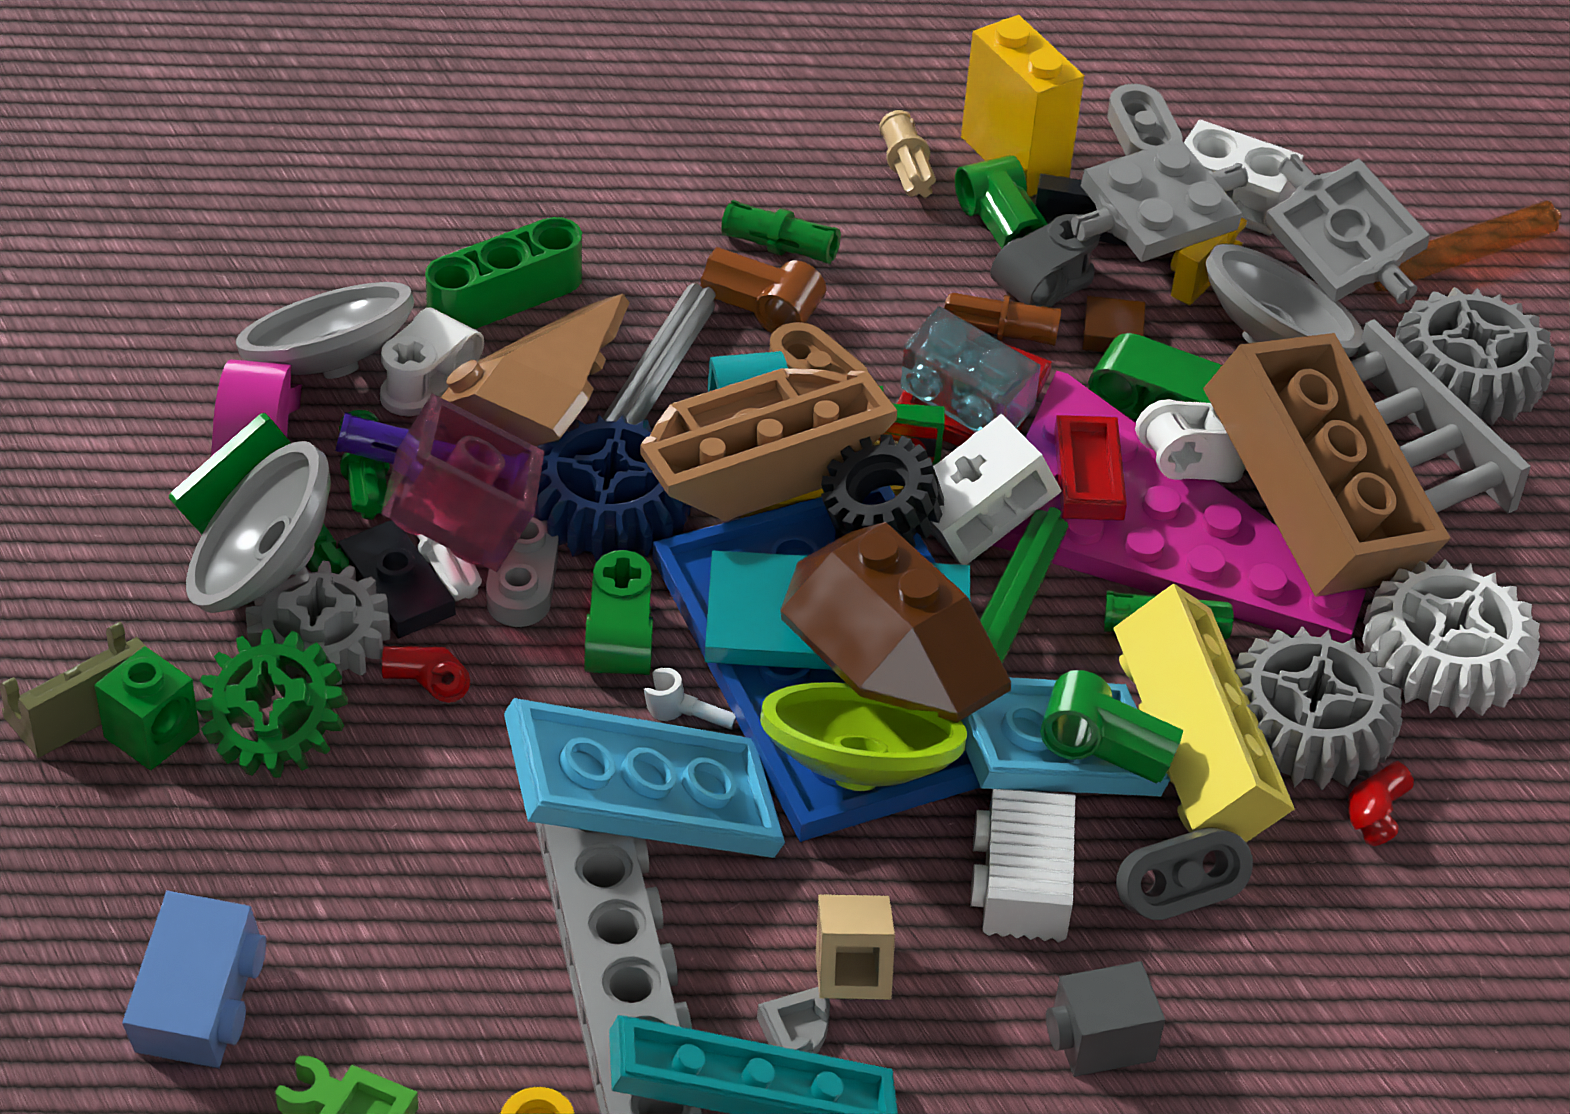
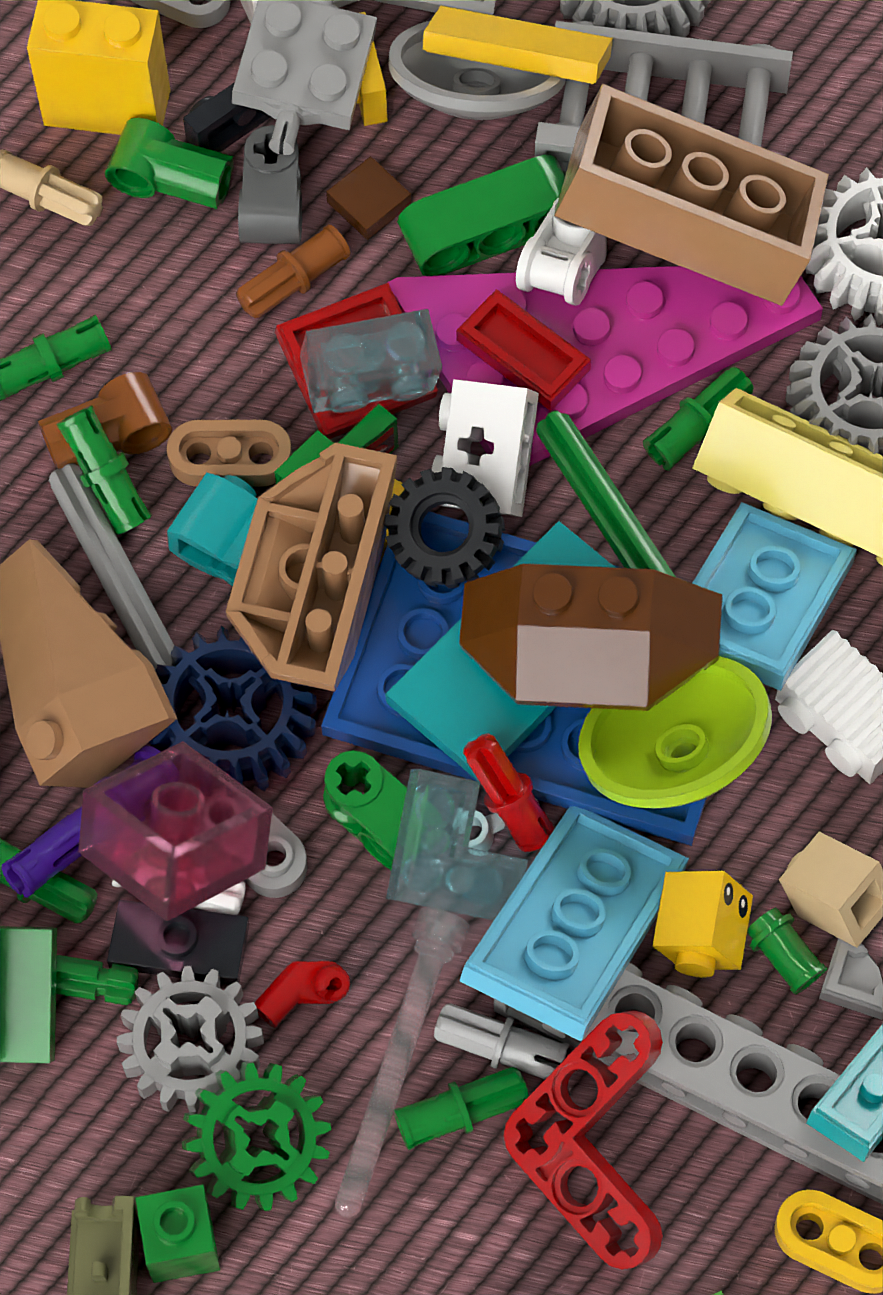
camera: 45 degrees left, 20 degrees up
(261, 530) = (92, 1024): light grey dish -> none
(394, 772) = (438, 938): none -> clear piece
(420, 825) = (461, 1107): none -> green axle
(446, 896) = (570, 1148): none -> red beam
(502, 819) = (498, 1041): none -> light grey axle
(608, 657) = (433, 855): none -> clear light blue plate
(710, 669) = (508, 793): none -> red axle
(721, 298) = (104, 470): none -> green pin
(732, 874) = (702, 922): none -> yellow brick
(775, 941) = (785, 950): none -> green pin
(1088, 721) = (796, 567): green piece -> none
(1326, 306) = (517, 44): none -> yellow tile

